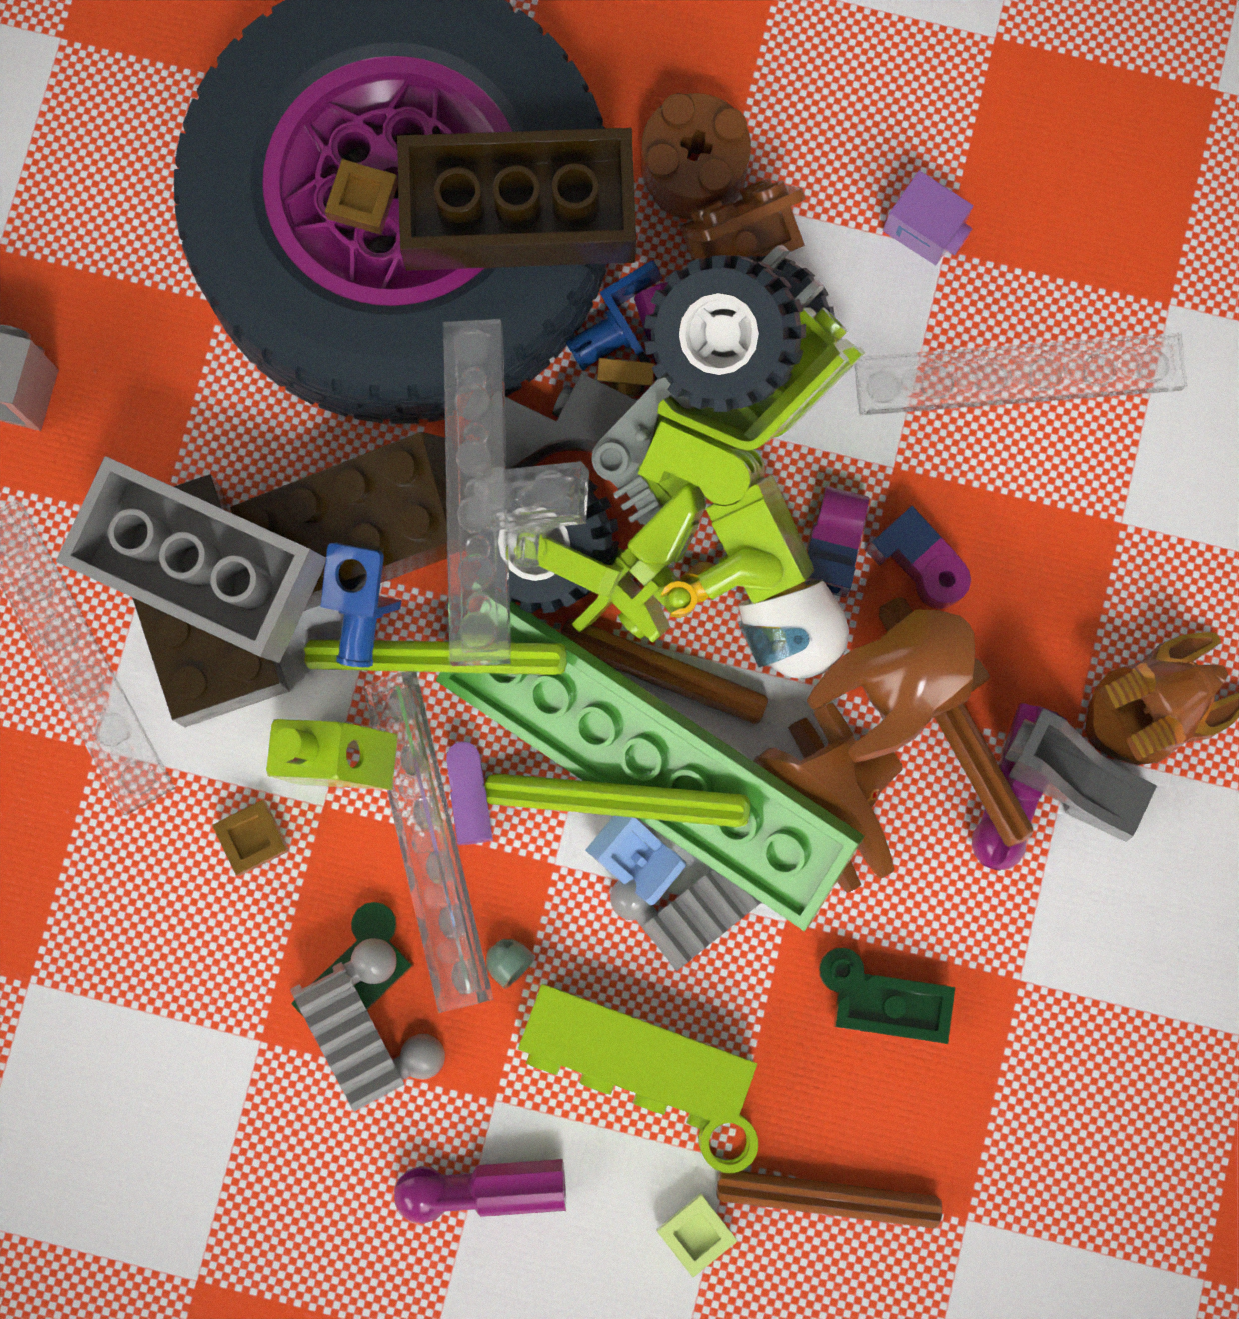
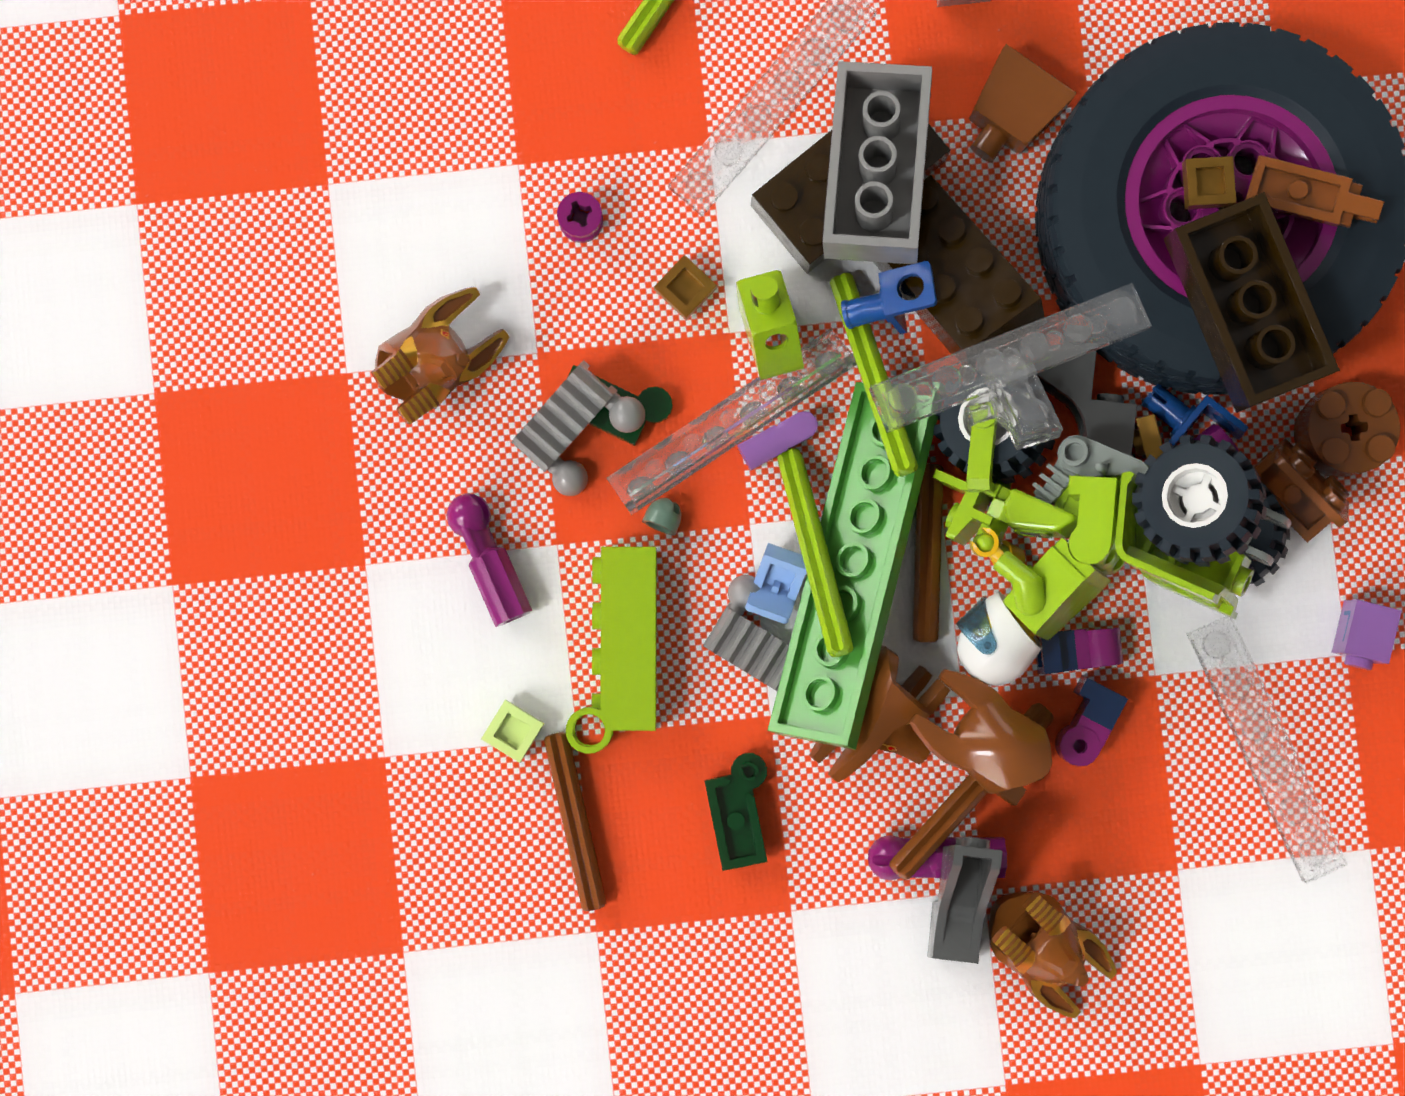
camera: 70 degrees right, 5 degrees up
(132, 931) = (584, 225): none -> magenta wheel
(188, 383) = (1016, 105): none -> dark orange torso
(219, 1172) = (431, 359): none -> dark orange piece
(418, 88) = (1312, 193): none -> dark orange hinge

